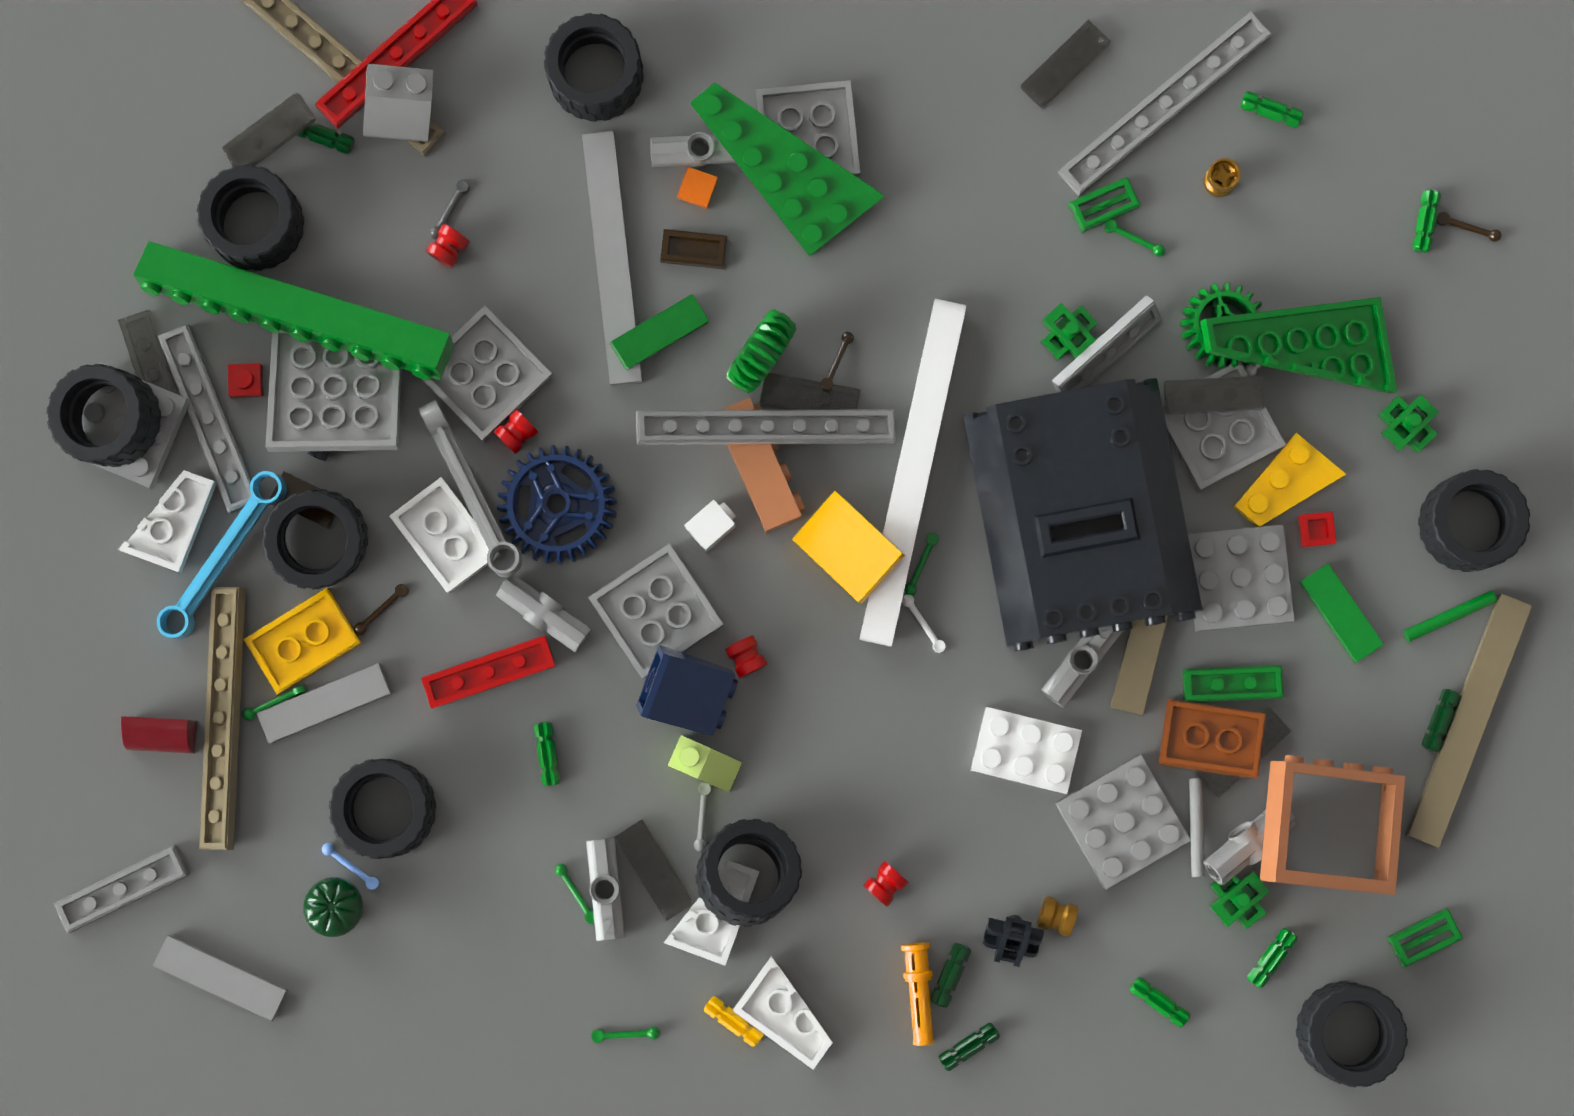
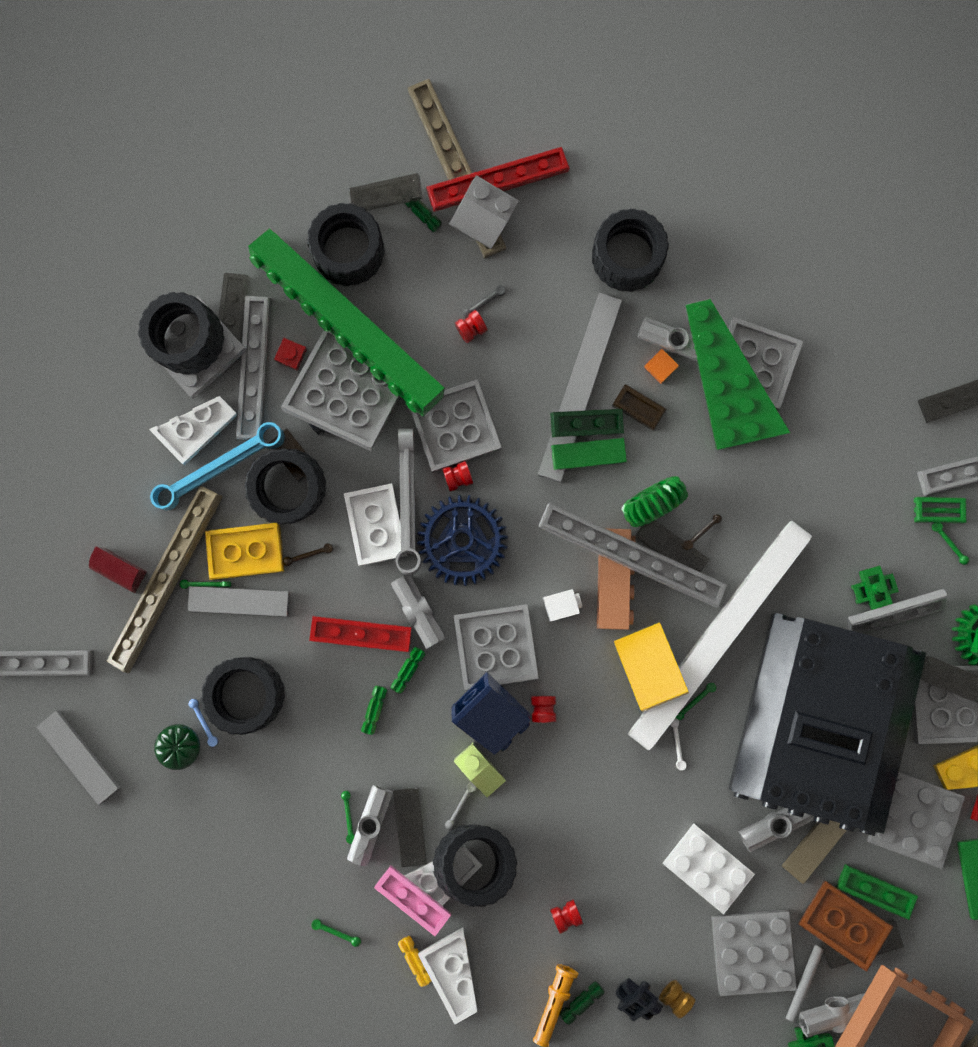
camera: 25 degrees right, 0 degrees up
(564, 688) = (407, 670): none -> green axle
(639, 296) = (587, 422): none -> dark green plate
(695, 949) = (412, 900): none -> bright pink plate

